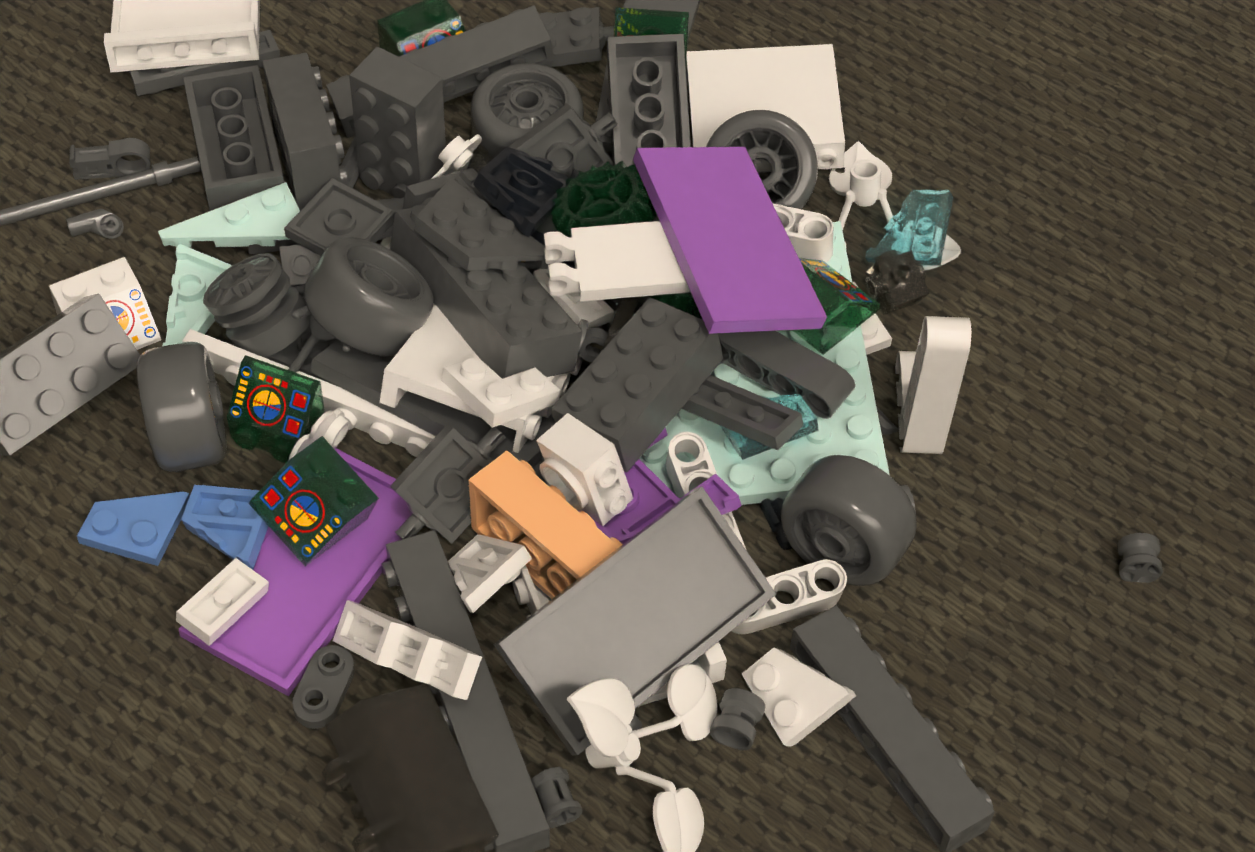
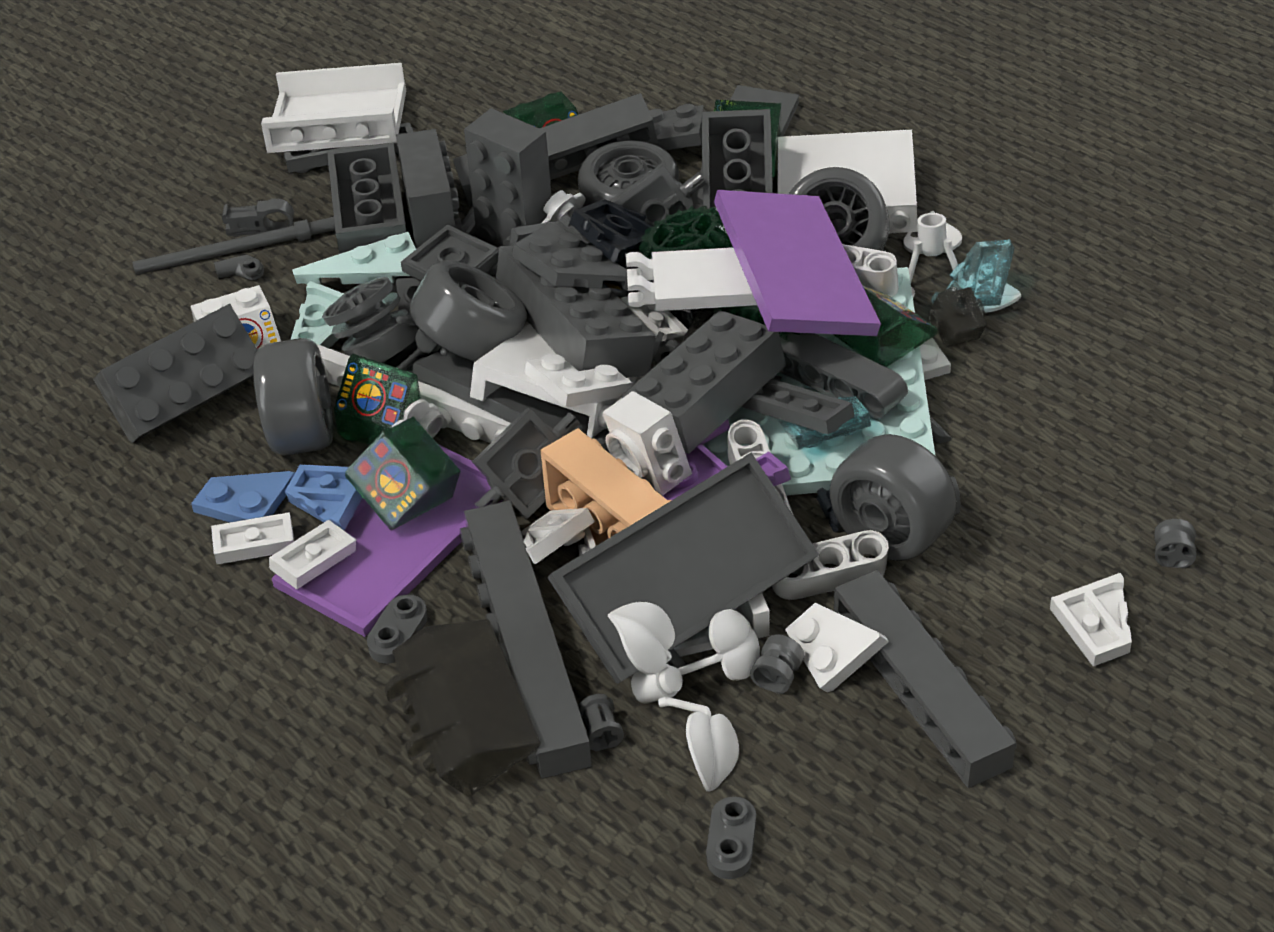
camera: 10 degrees right, 10 degrees down
(151, 579) = (251, 538): none -> white plate
(407, 649) = (474, 592): white slope -> none
(931, 383) = (978, 382): white beam -> none
(1064, 651) = (1096, 618): none -> white wing

